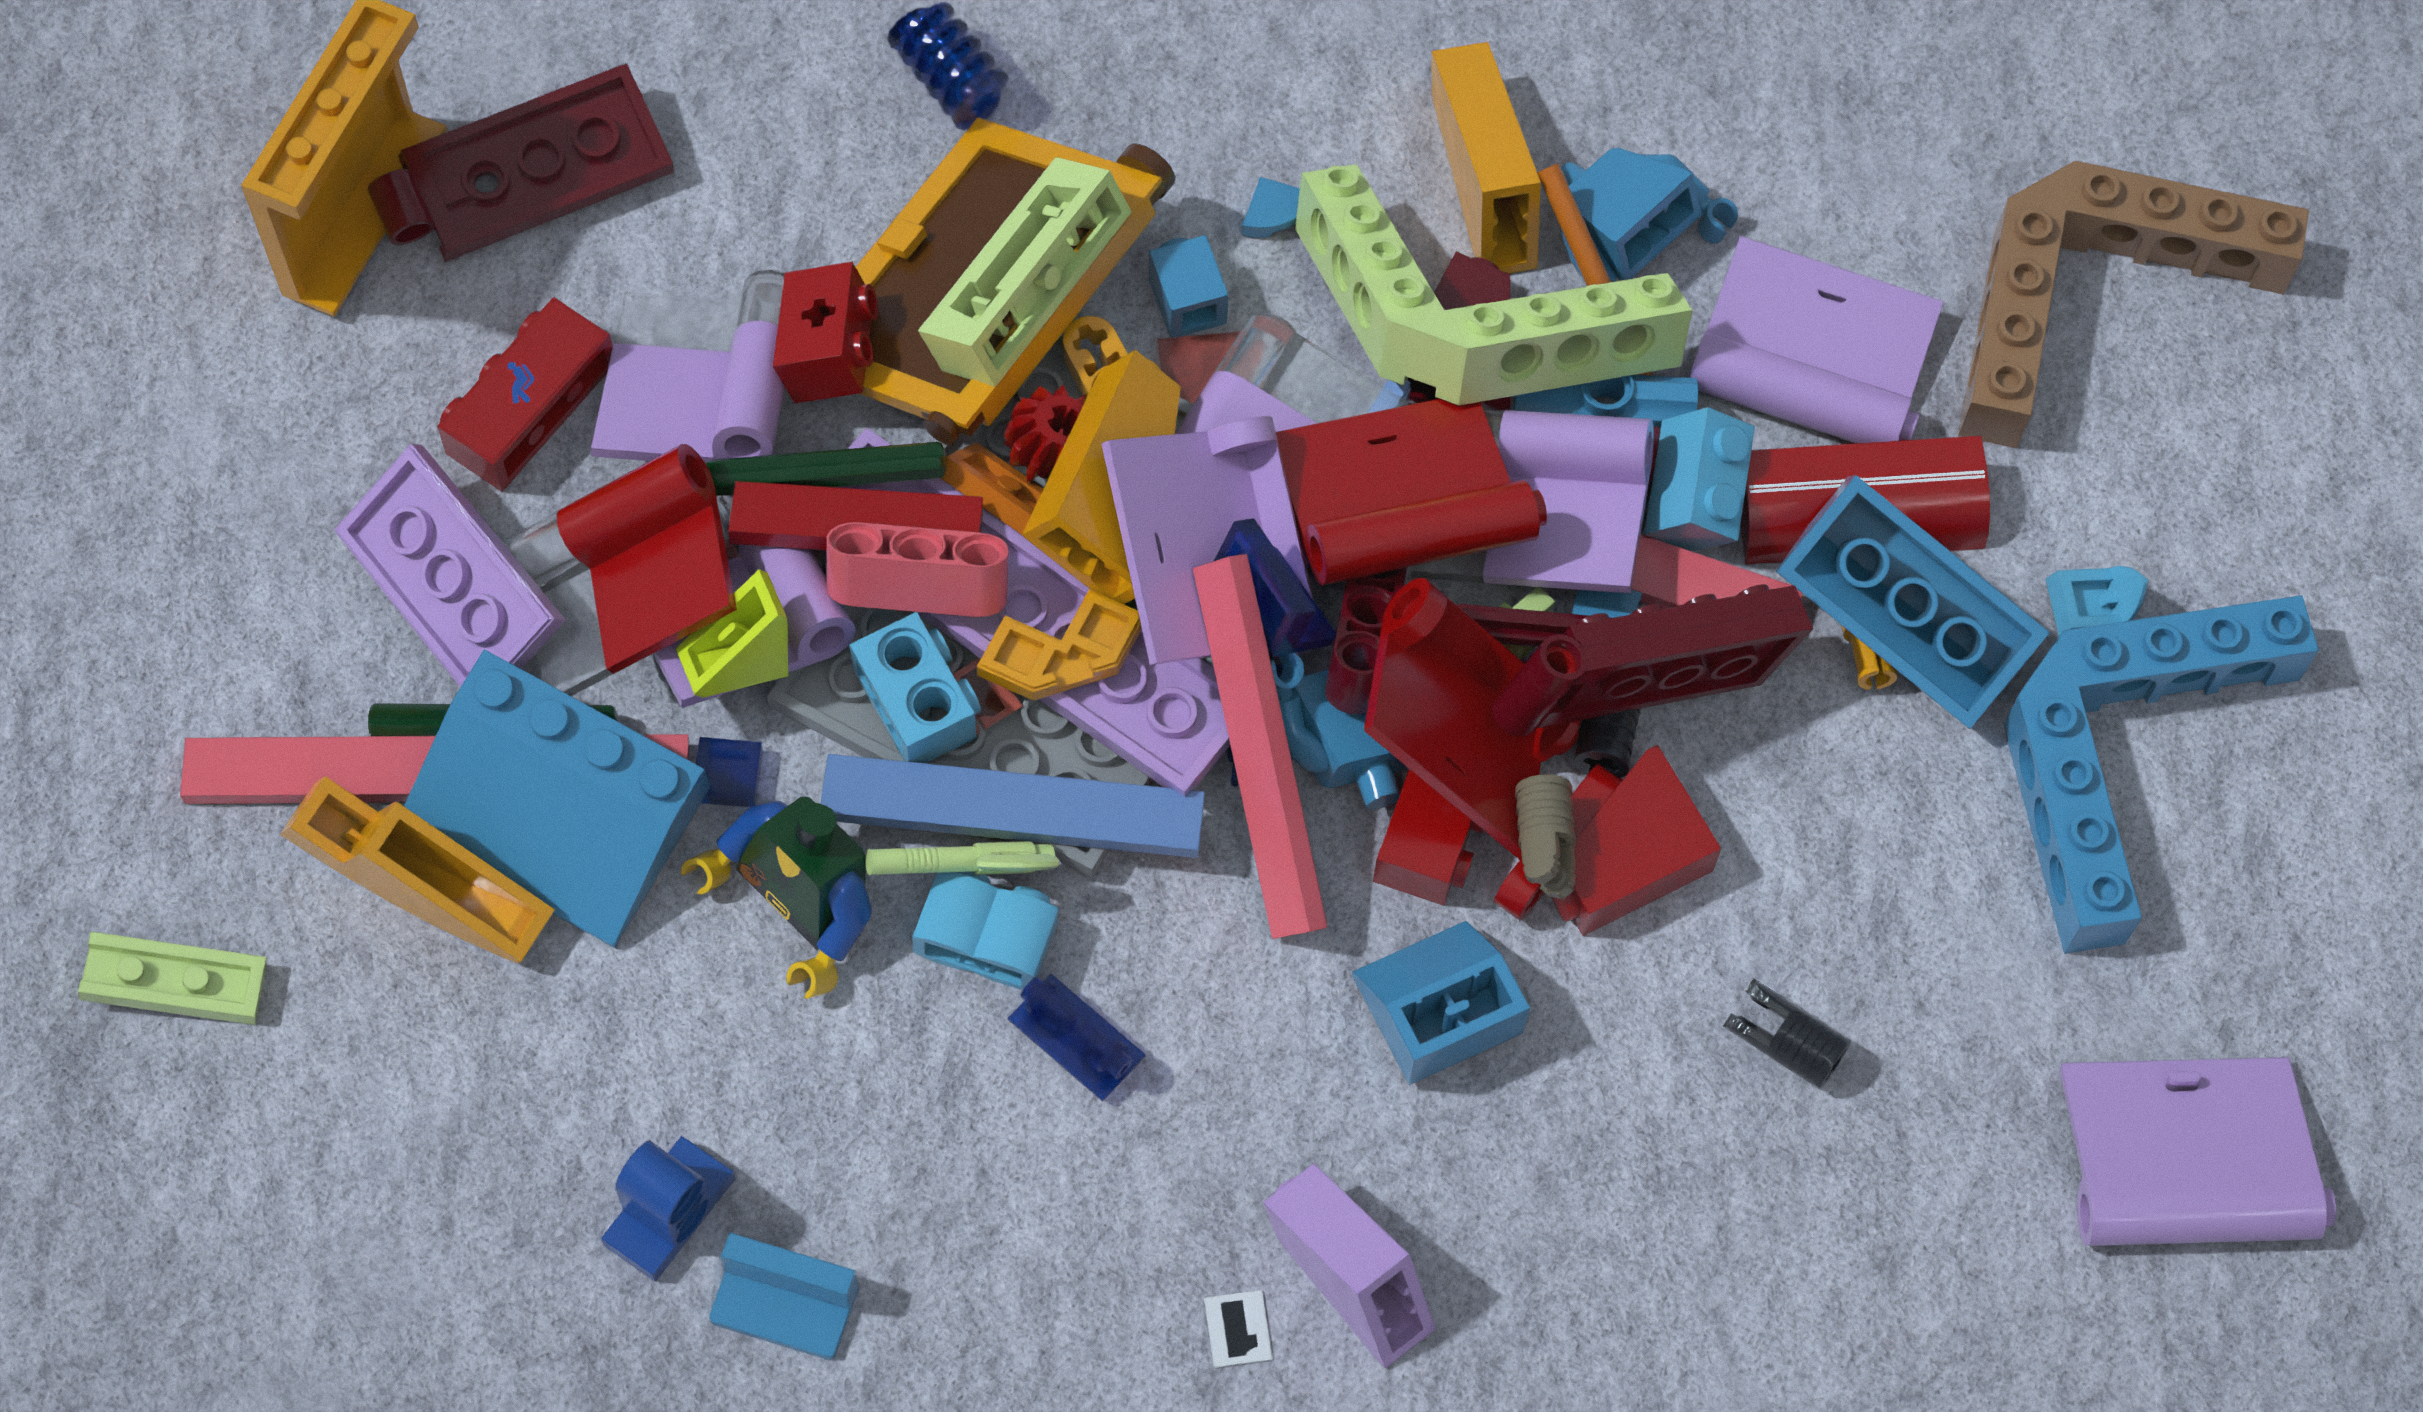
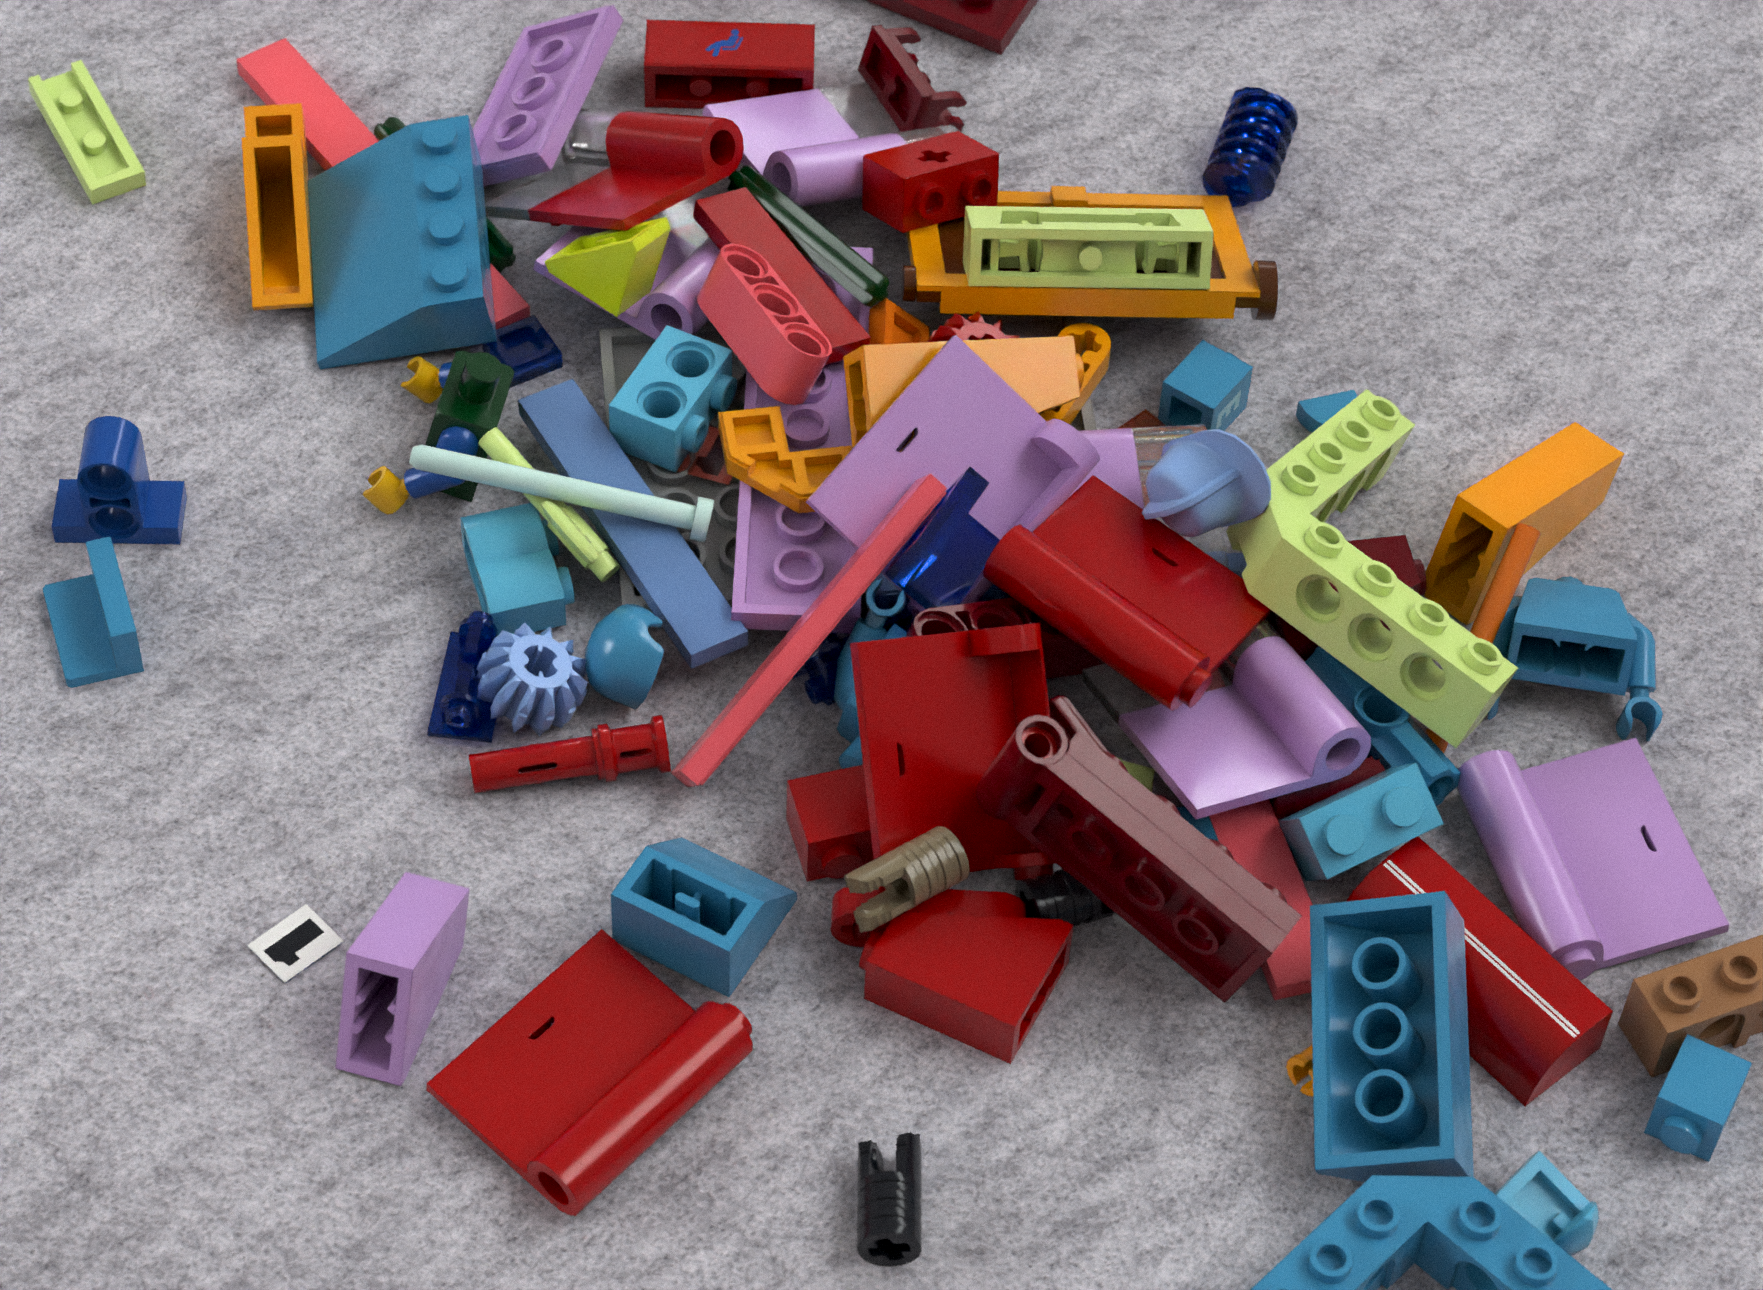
camera: 55 degrees right, 15 degrees down
(668, 275) = (901, 85): none -> dark red hinge
(1062, 754) = (566, 489): none -> light aqua bar
(1121, 986) = (531, 679): none -> light blue gear
(1152, 899) = (623, 655): none -> dark azure hair
(1225, 979) = (602, 753): none -> red pin
(1361, 365) = (1206, 483): none -> light blue piece
(1542, 1178) = (597, 1085): none -> red door
(2072, 435) = (1697, 1098): none -> dark azure brick

